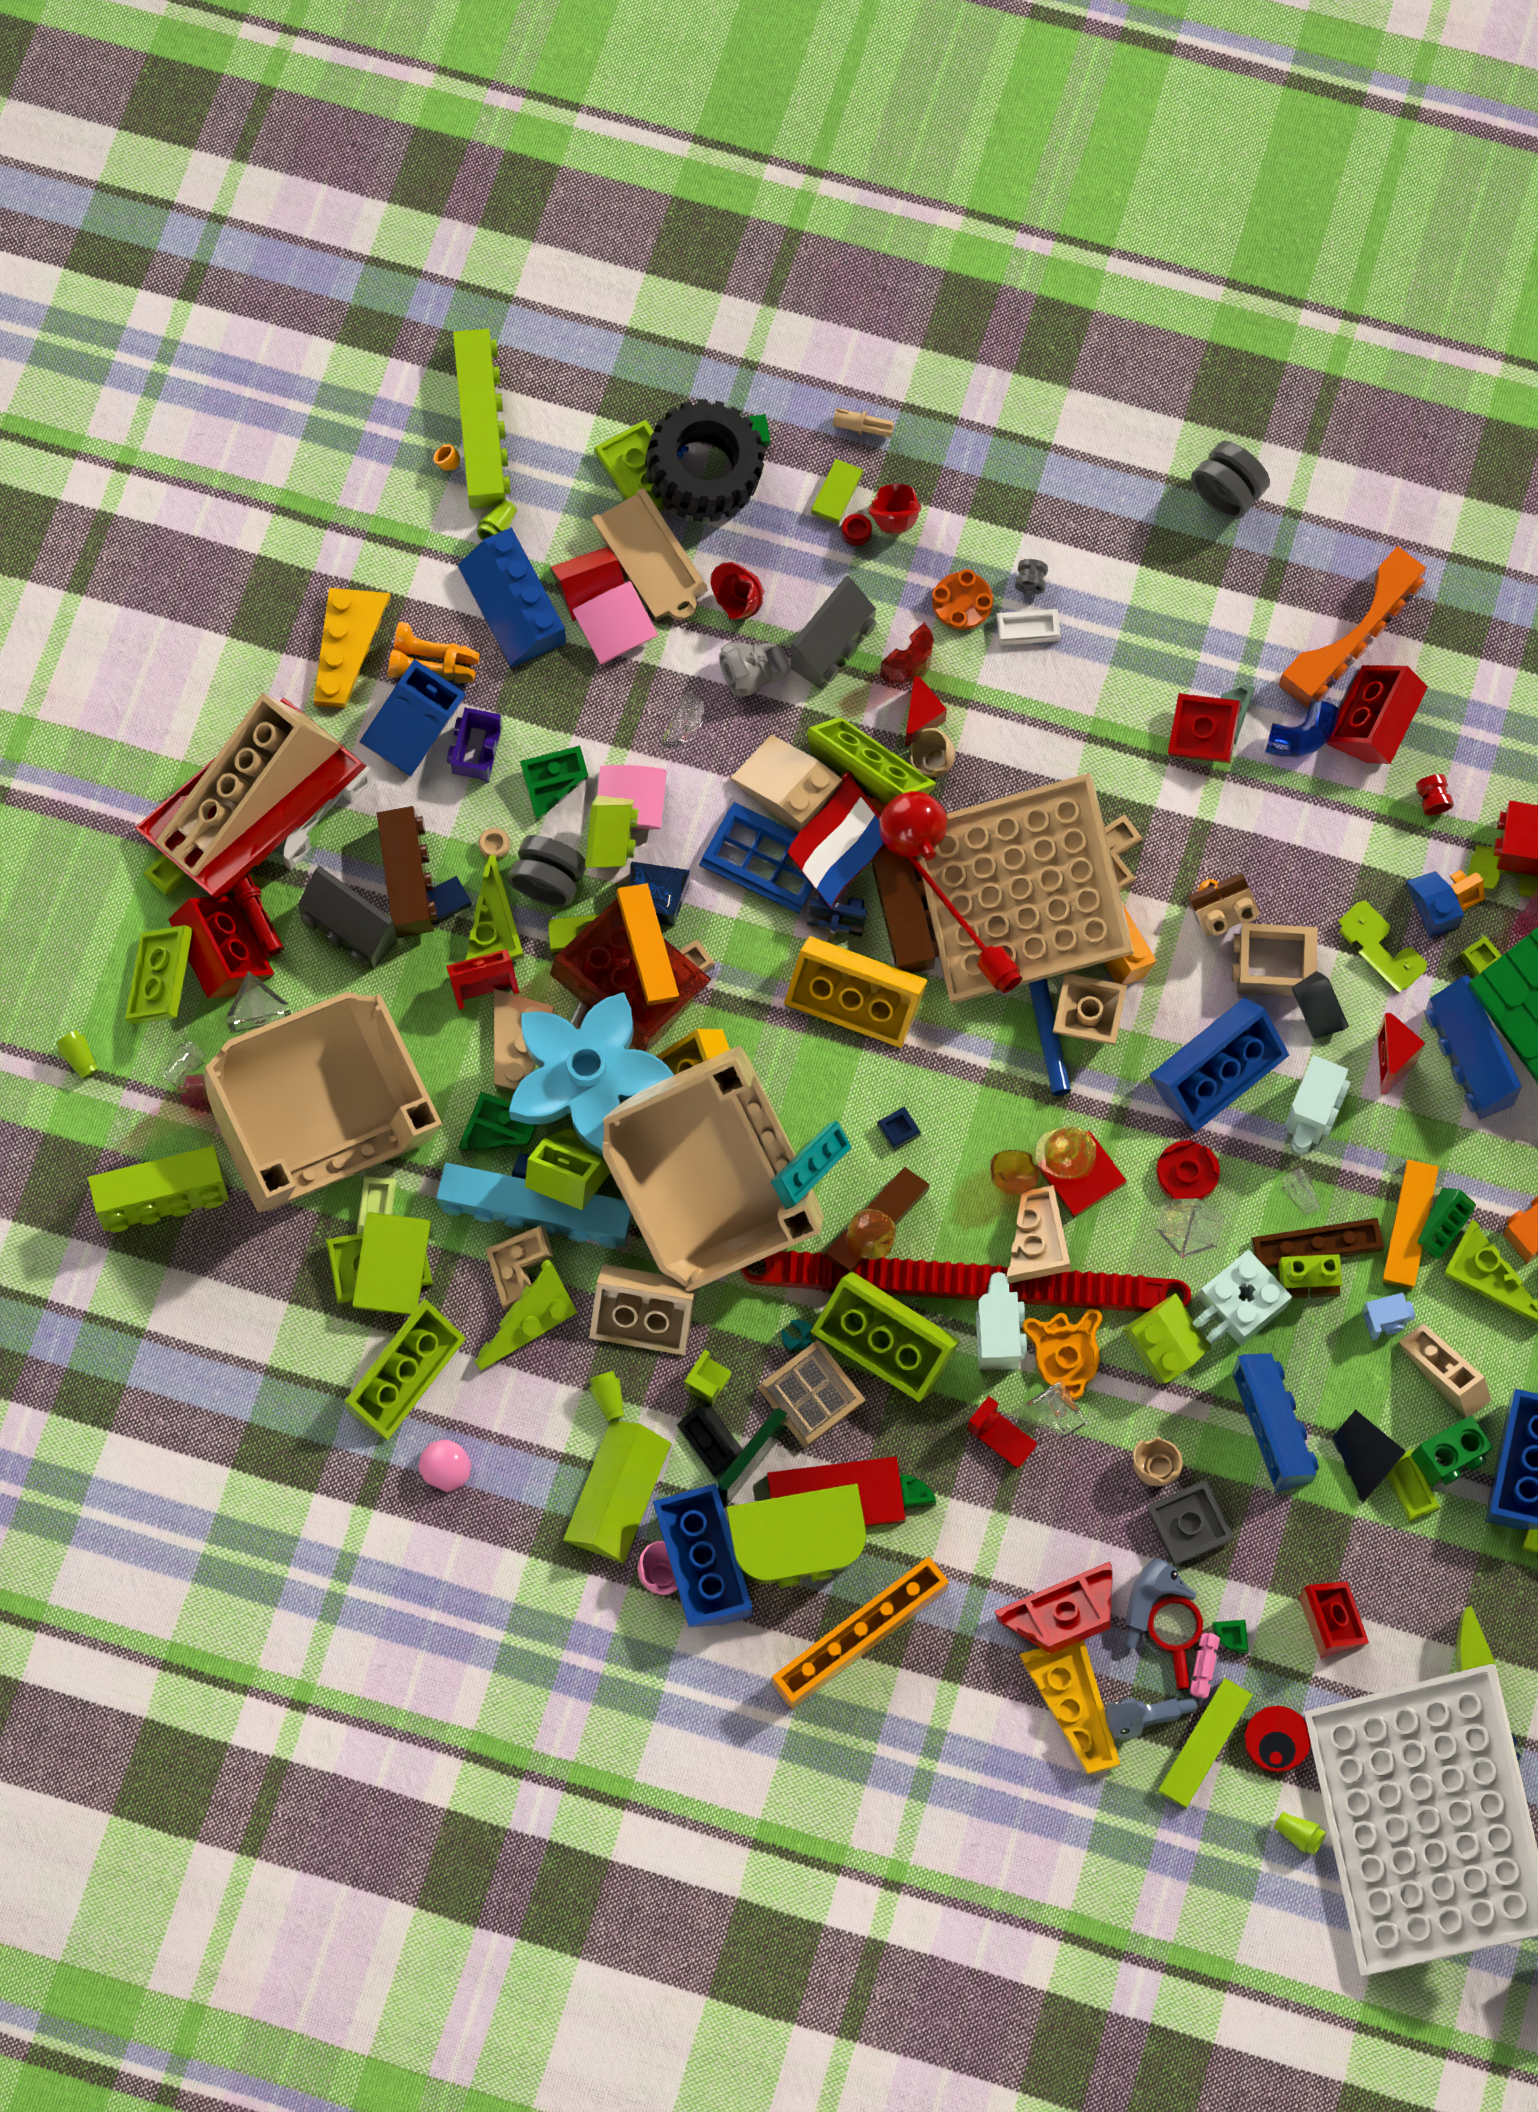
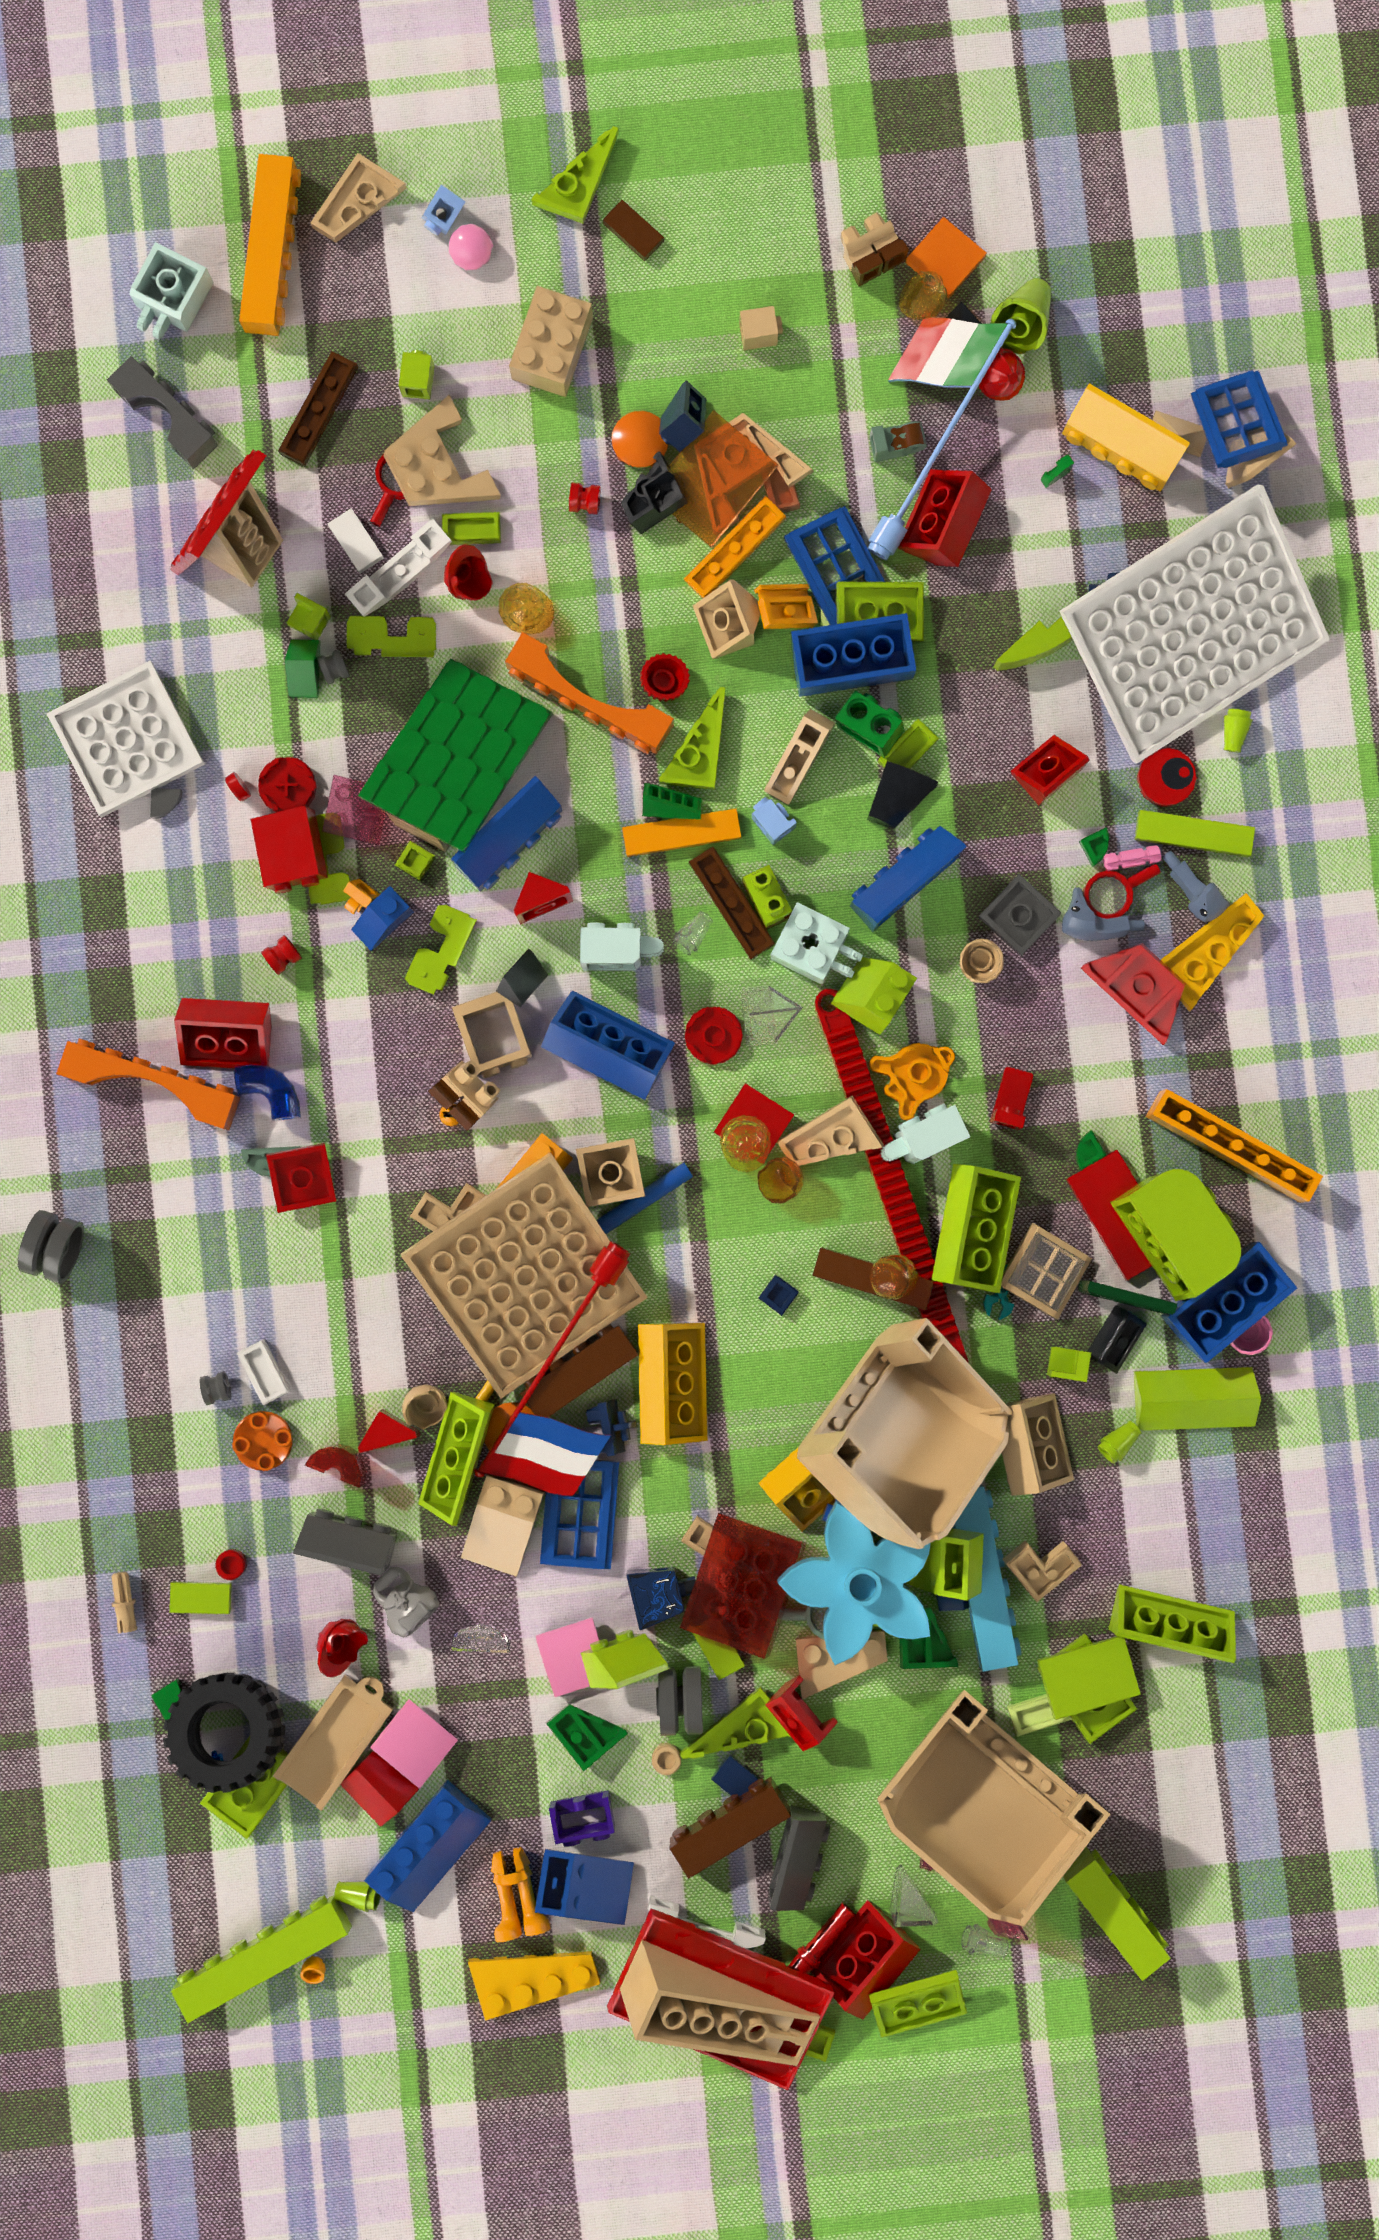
camera: 110 degrees left, 15 degrees up
(77, 1053) = (1016, 2040): lime cone -> none
(444, 1465) = (1236, 1553): bright pink hair -> none
(536, 1312) = (1079, 1536): lime wing -> none
(647, 944) = (714, 1582): light orange tile -> none
(811, 1164) = (857, 1353): teal tile -> none
(895, 508) = (199, 1538): red piece -> none
(913, 825) = (508, 1393): red piece -> none
(1052, 1411) = (971, 1065): clear slope -> none

